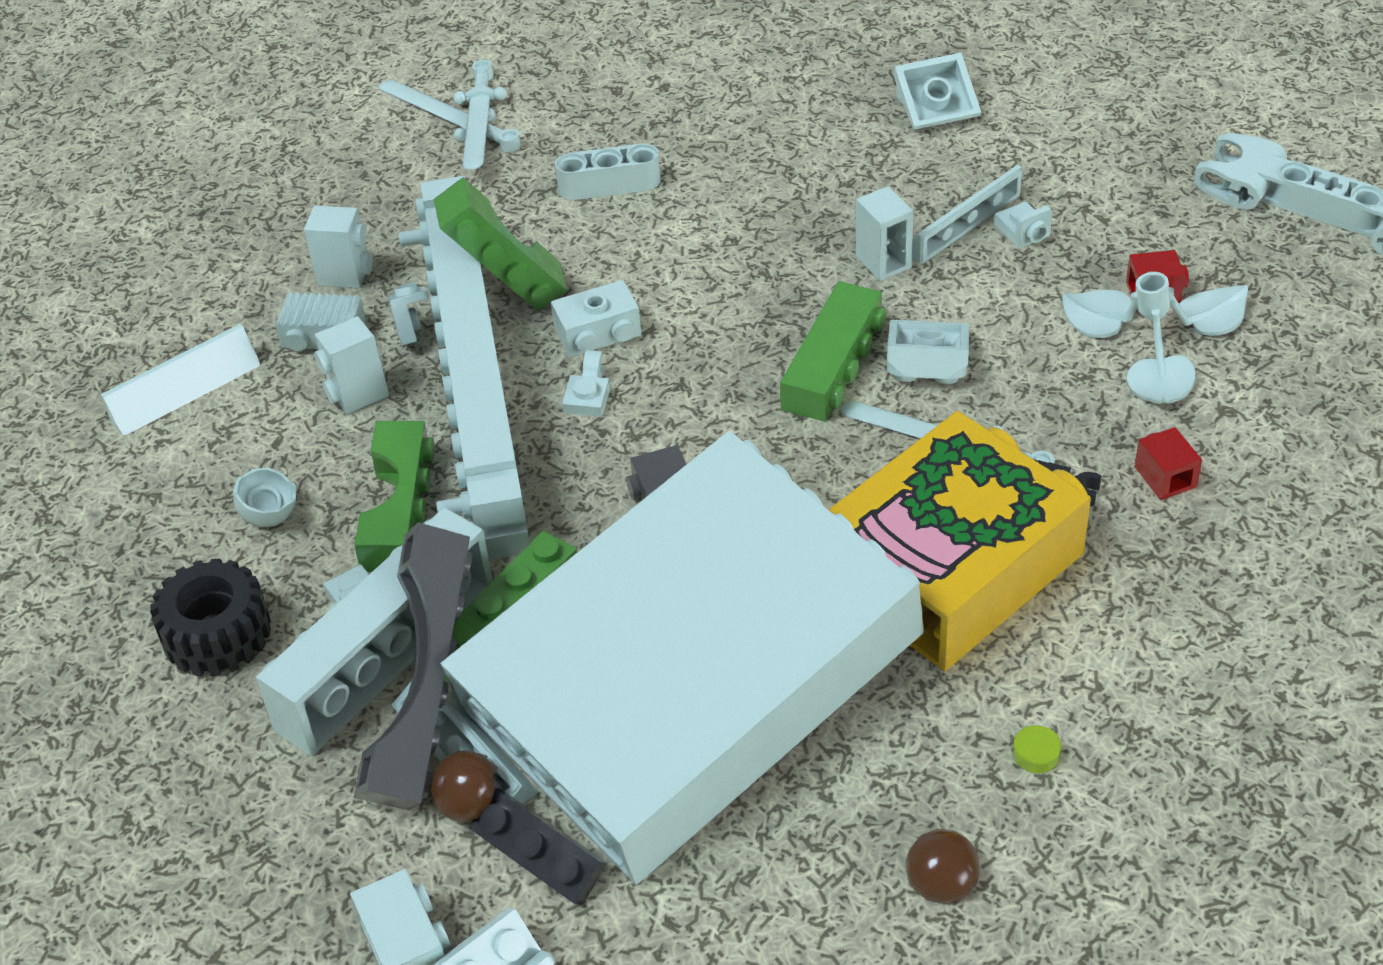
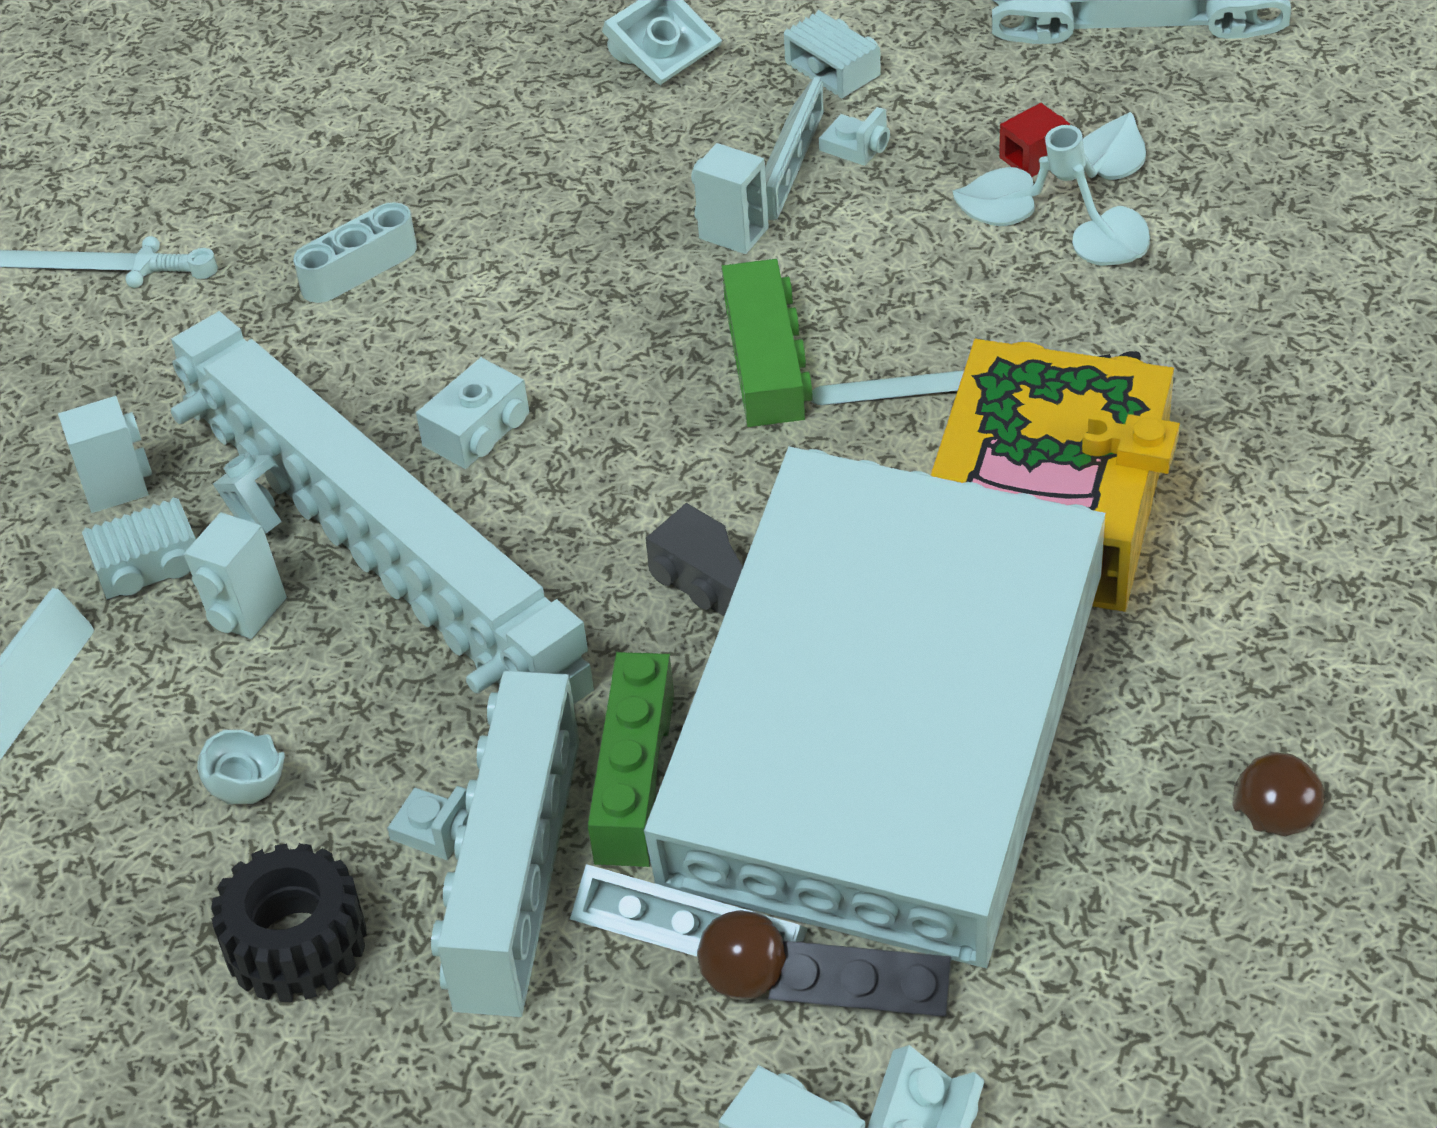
camera: 30 degrees left, 0 degrees up
(400, 458) = (371, 654): bright green arch -> none
(431, 575) = (647, 955): dark grey arch -> none
(474, 225) = (325, 368): bright green arch -> none
(478, 112) = (129, 230): light aqua sword -> none
(588, 392) = (520, 496): light aqua plate -> none
(928, 350) = (864, 300): light aqua slope -> none
(1010, 544) = (1138, 443): none -> yellow plate
(1036, 749) = (1276, 642): lime tile -> none
(1054, 152) = (833, 52): none -> light aqua brick
(1168, 463) = (1188, 314): red brick -> none

